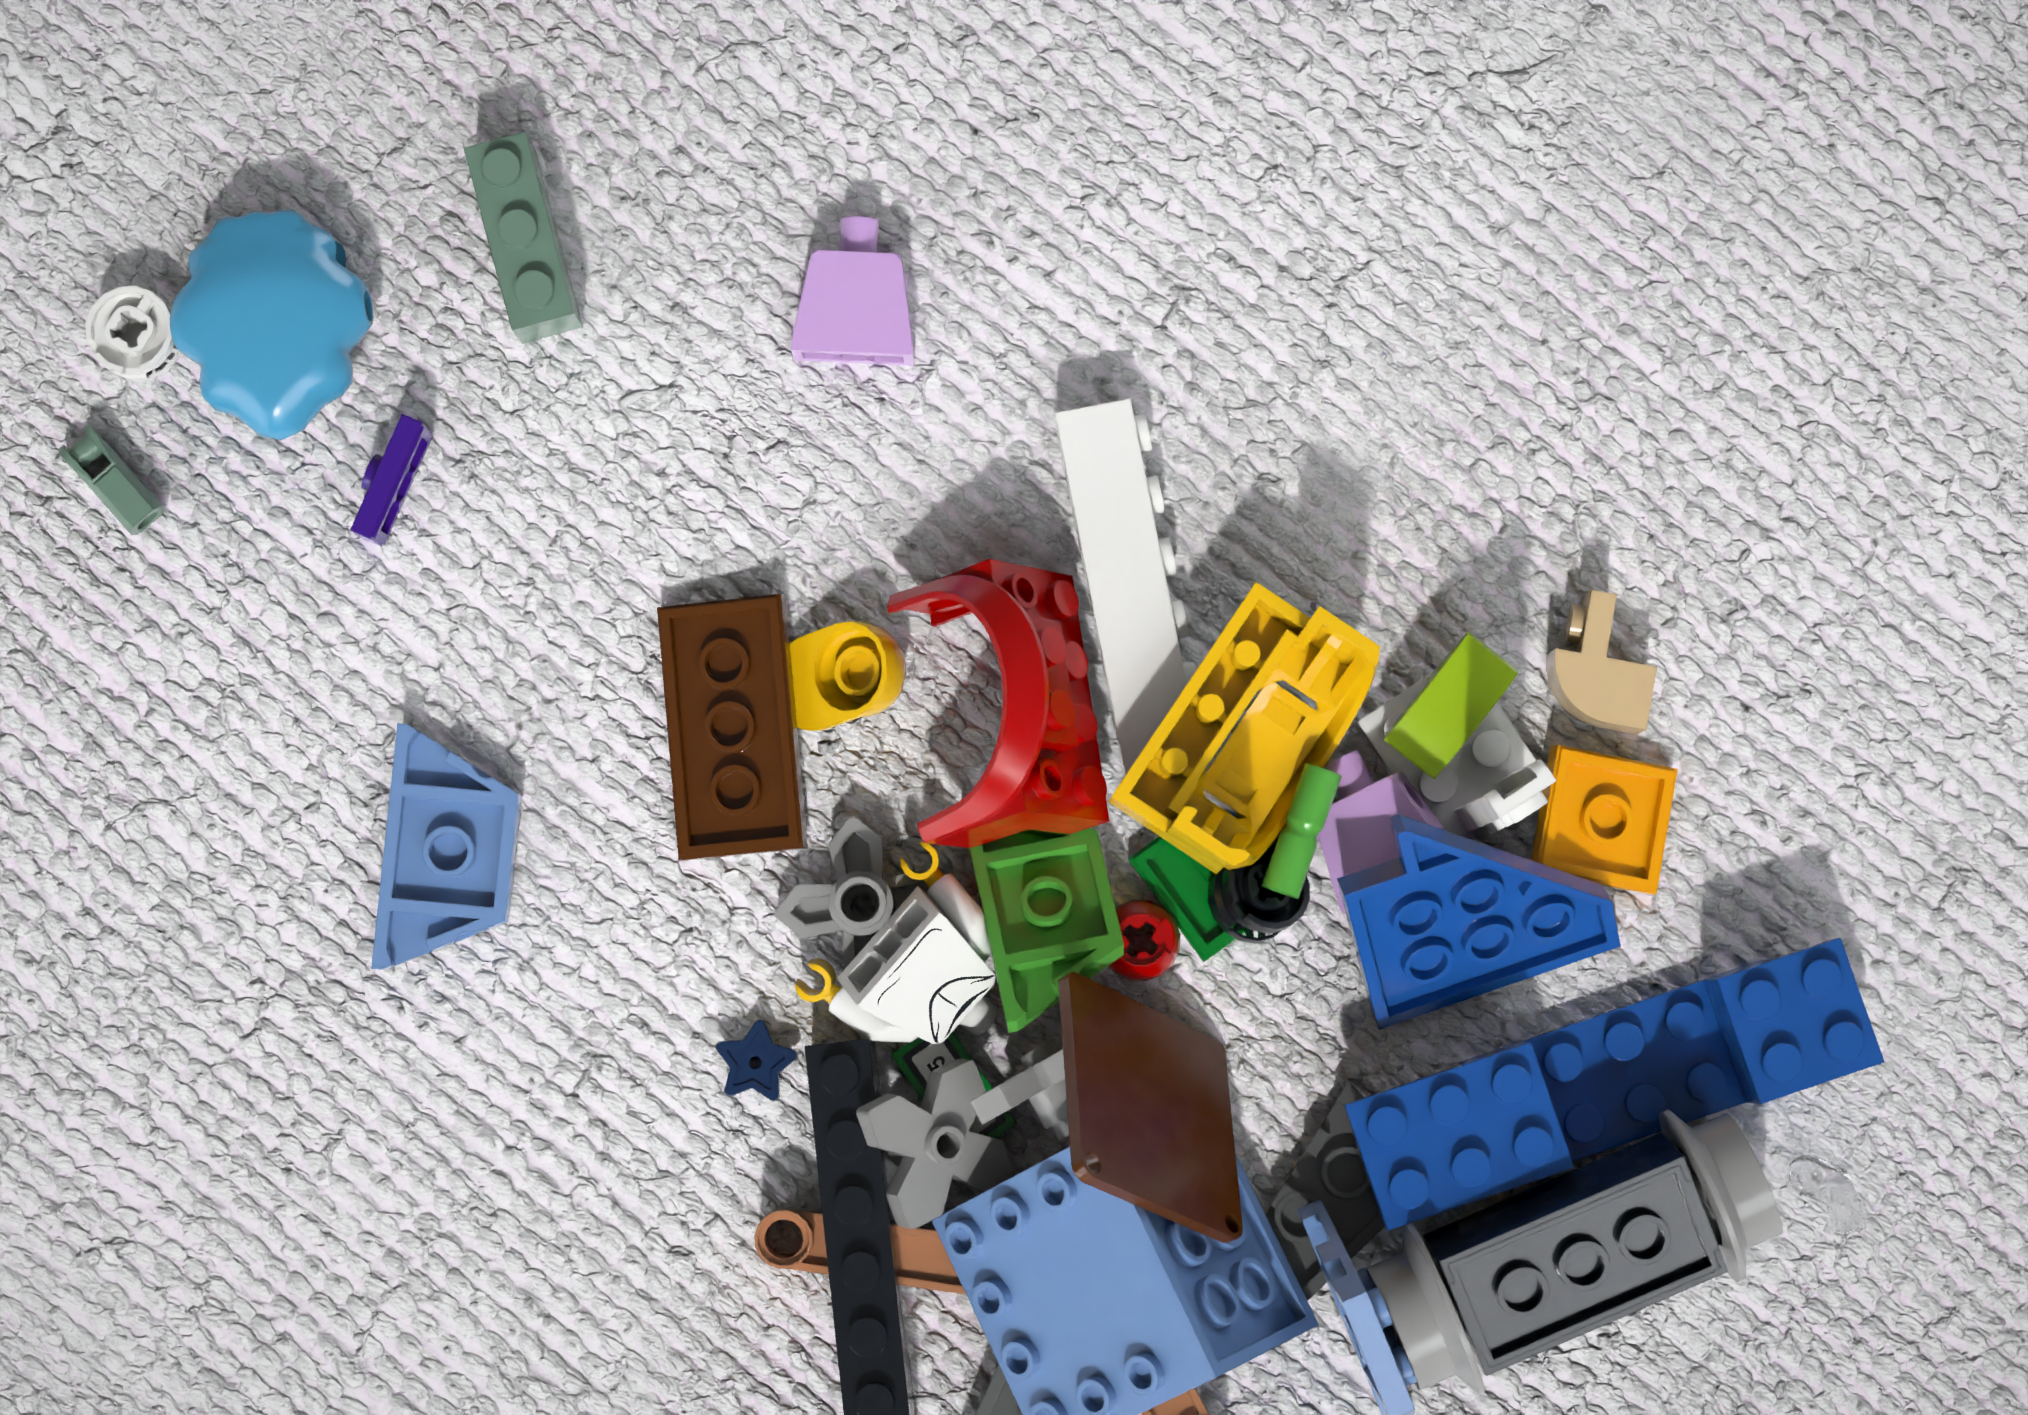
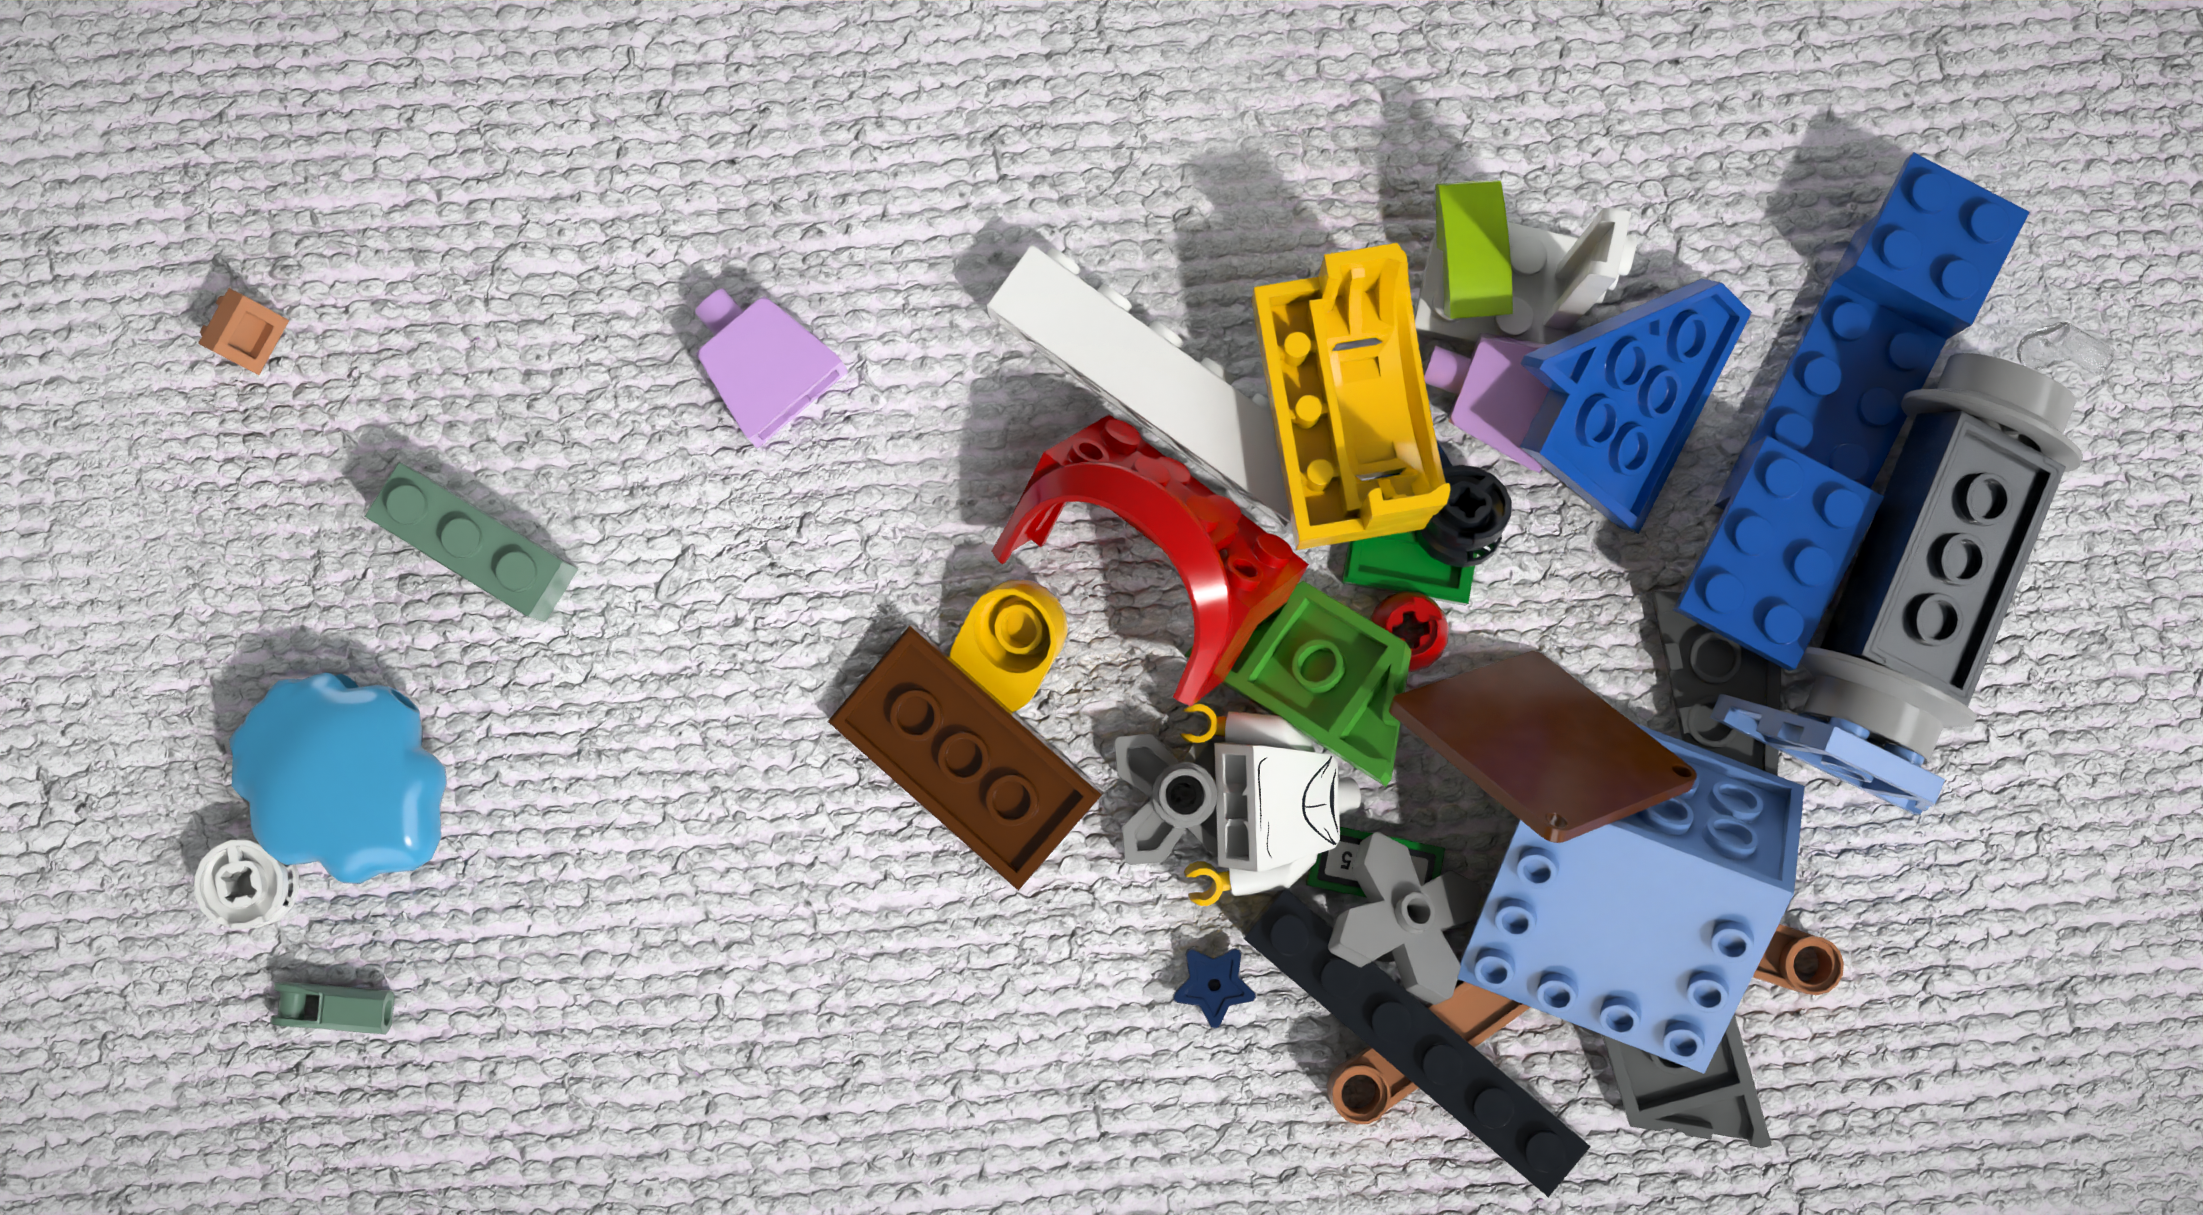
camera: 45 degrees left, 0 degrees up
(390, 479) = (541, 812): dark purple plate -> none
(443, 852) = (839, 1048): medium blue wing -> none
(1040, 1083) = (1441, 797): light grey plant -> none
(1299, 837) = (1452, 432): bright green piece -> none
(1589, 684) = (1551, 143): tan brick -> none
(1605, 818) = (1674, 228): light orange tile -> none

